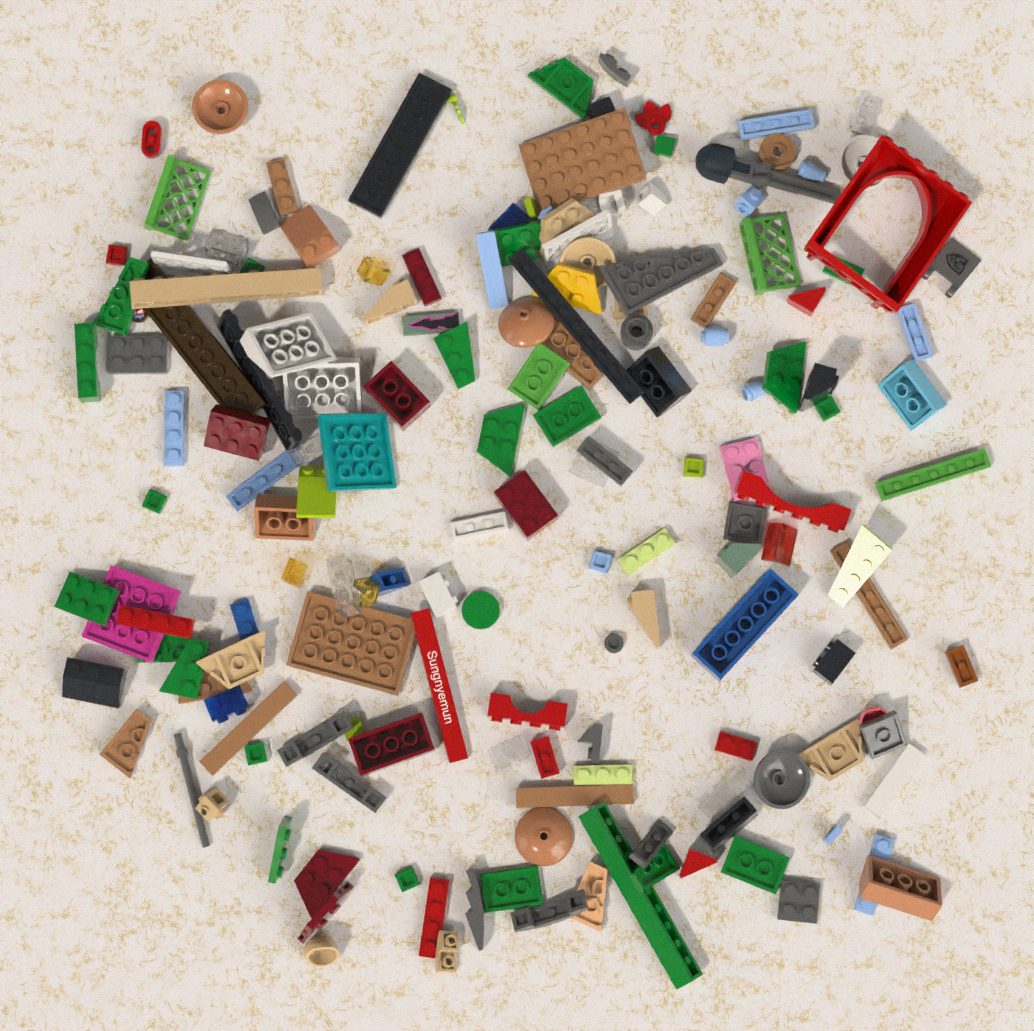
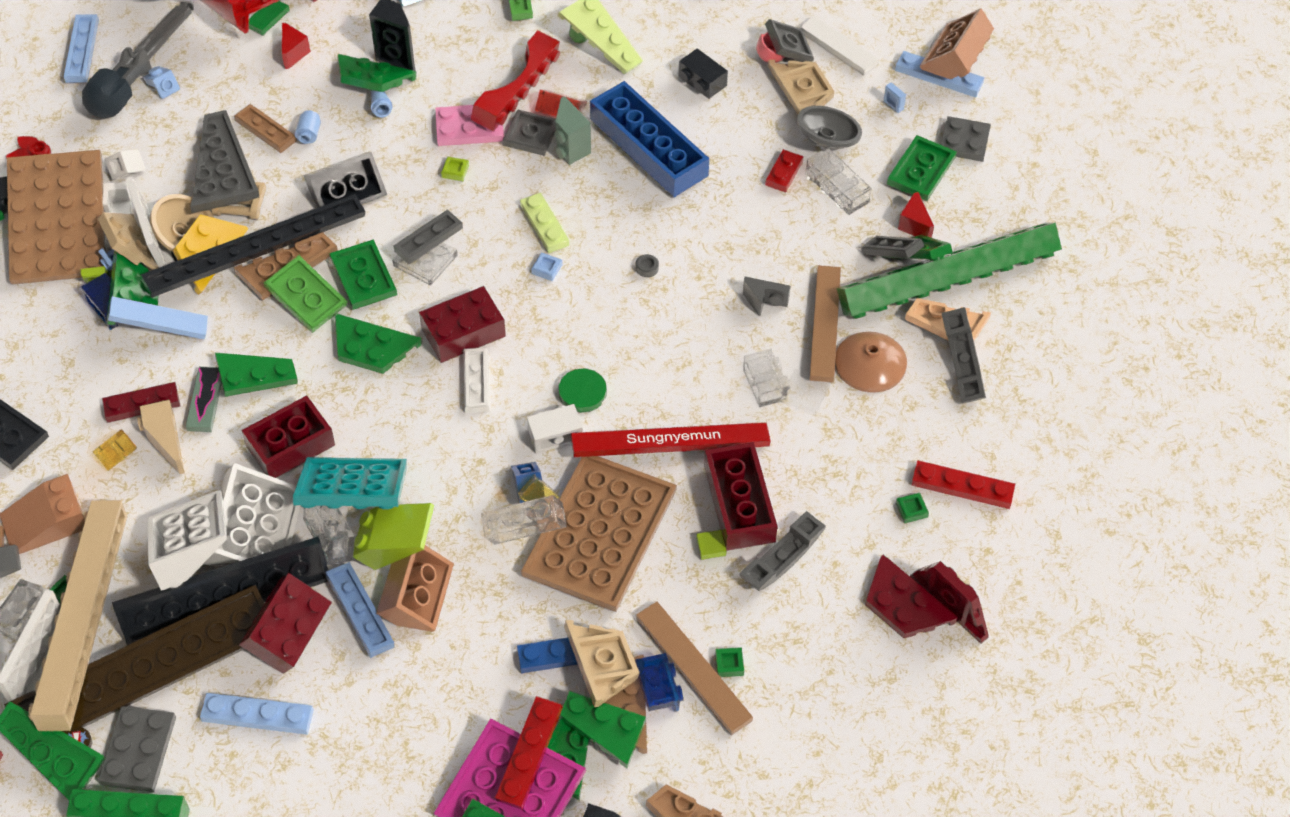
camera: 85 degrees left, 25 degrees down
(154, 501) = (354, 750): green tile -> none
(182, 753) = (717, 753): dark grey bar -> none
(212, 804) = (794, 716): tan brick -> none
(280, 849) = (866, 638): green wing -> none
(294, 572) = (493, 583): clear yellow panel -> none
(315, 739) = (718, 584): dark grey slope -> none
(321, 950) = (1000, 608): tan hat -> none
(446, 951) = (997, 469): tan slope -> none
(476, 916) = (964, 434): dark grey slope -> none
(511, 889) = (932, 400): green tile -> none
(526, 330) = (235, 297): nougat dish -> none
(544, 757) = (781, 343): red plate -> none
(551, 715) = (709, 376): red arch -> none
(602, 775) = (803, 295): yellowish green plate -> none
(636, 322) = (280, 195): dark grey piece -> none
(645, 612) = (619, 227): tan slope -> none
(664, 146) = (65, 145): green tile -> none
(729, 824) = (885, 187): black brick -> none
(754, 259) = (227, 83): bright green fence -> none
(781, 142) = (102, 50): medium nougat plate -> none
(810, 171) = (144, 26): light blue cone -> none
(827, 408) = (421, 48): green tile -> none
(874, 604) = (639, 39): medium nougat tile -> none

